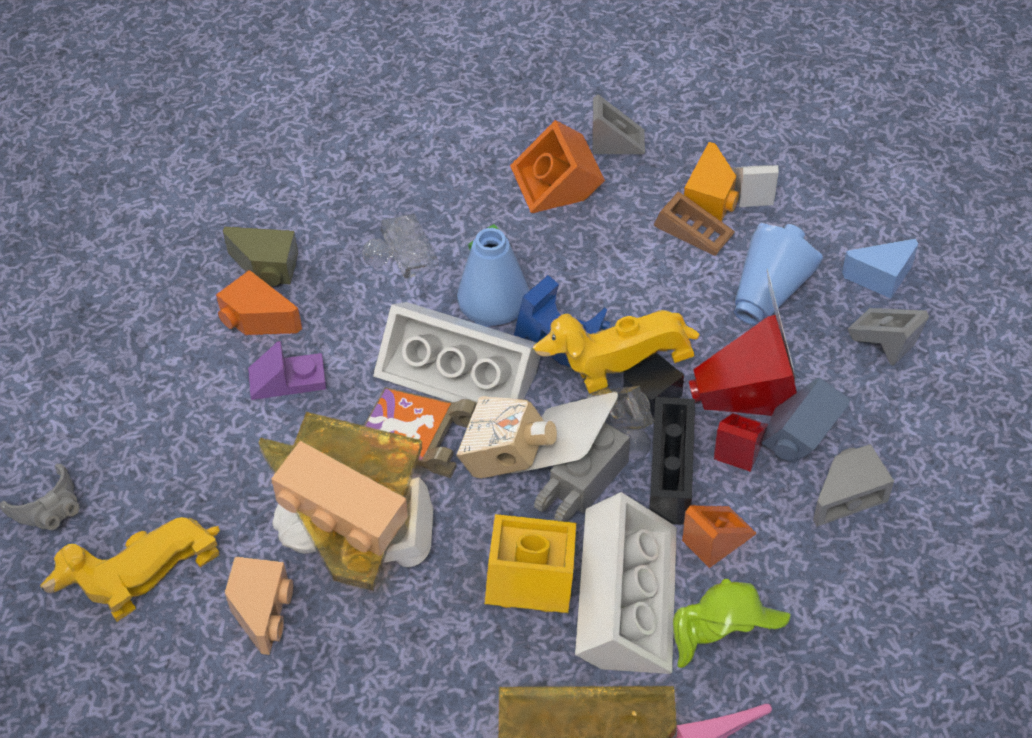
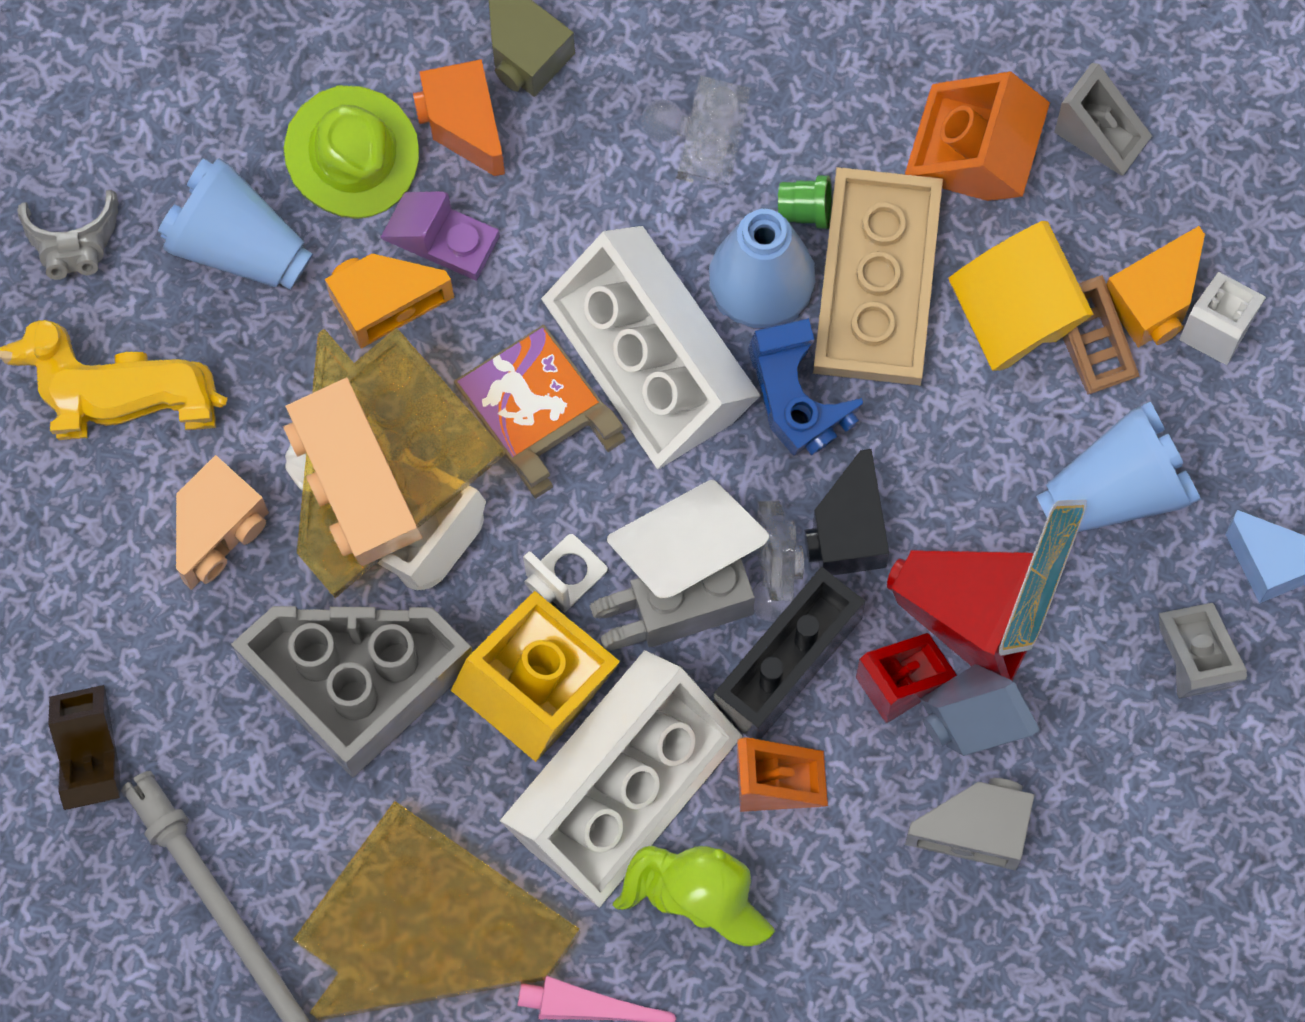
camera: 35 degrees right, 20 degrees up
(156, 435) = (233, 229): none -> light blue cone
(201, 362) = (351, 151): none -> lime hat
(276, 415) = (385, 294): none -> light orange slope
(414, 628) = (353, 671): none -> light grey brick
(499, 500) = (545, 582): none -> white bracket
(503, 437) = (618, 493): tan torso -> none
(553, 245) = (878, 276): none -> tan plate
(617, 347) = (826, 469): yellow animal -> none
(644, 223) = (1020, 295): none -> yellow slope

